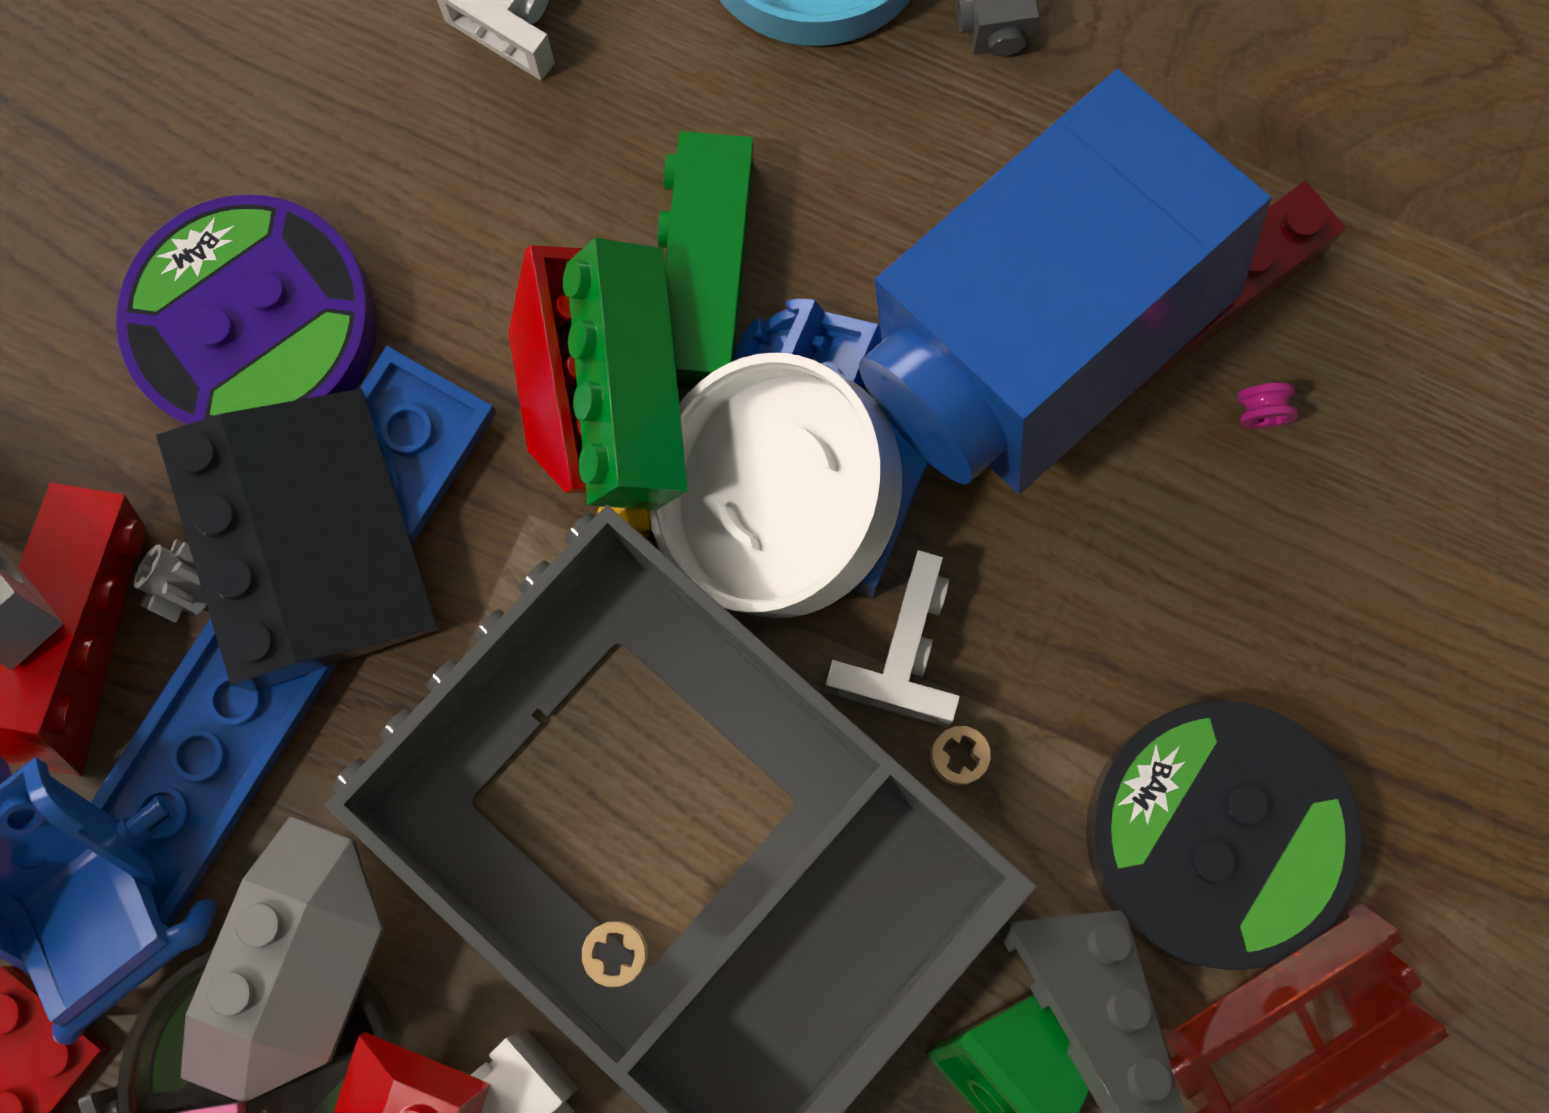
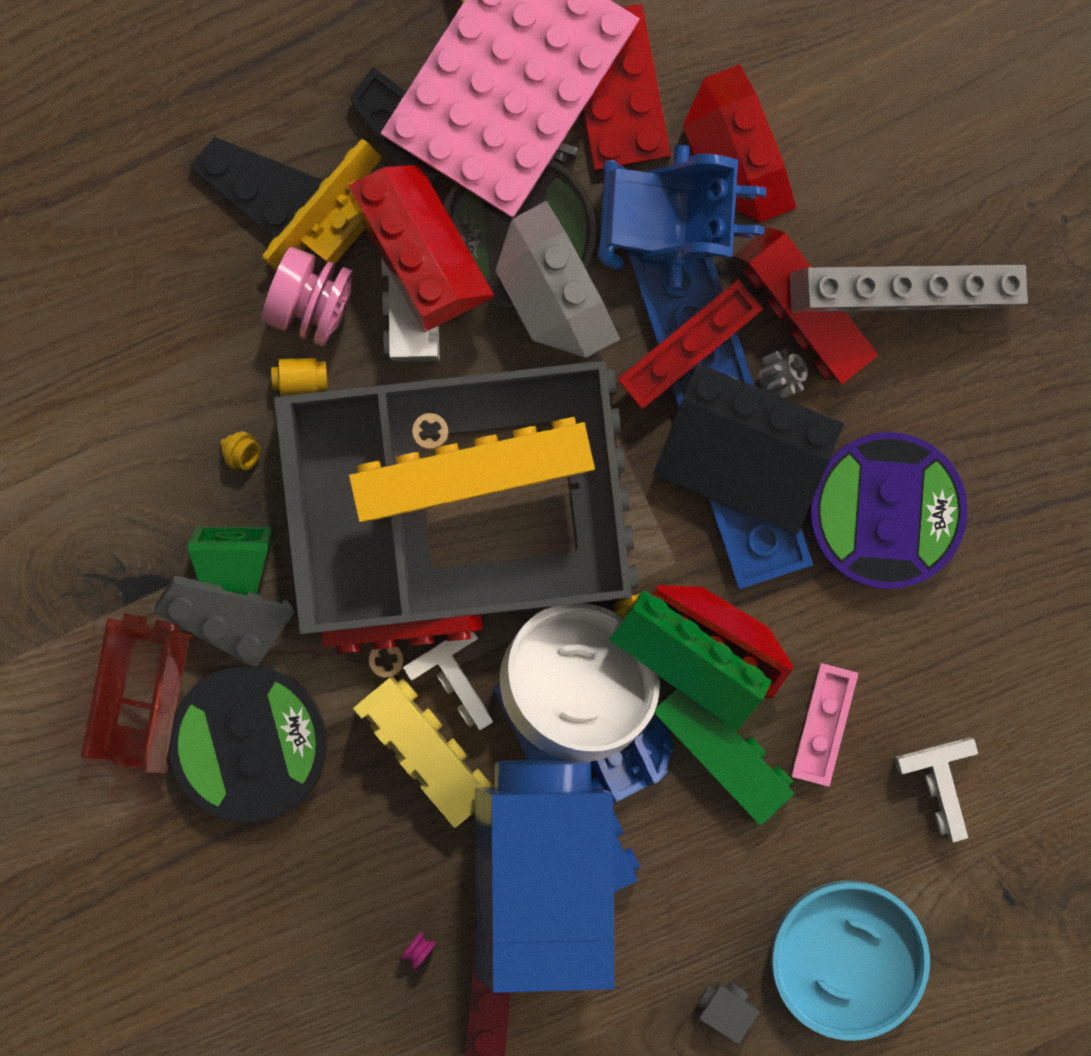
camera: 130 degrees right, 10 degrees up
(224, 722) = (690, 344): none -> red plate
(570, 178) = (824, 724): none -> bright pink plate
(620, 848) = (472, 471): none -> yellow brick
(895, 736) = (418, 632): none -> red plate
(1028, 610) = (423, 749): none -> light yellow wedge

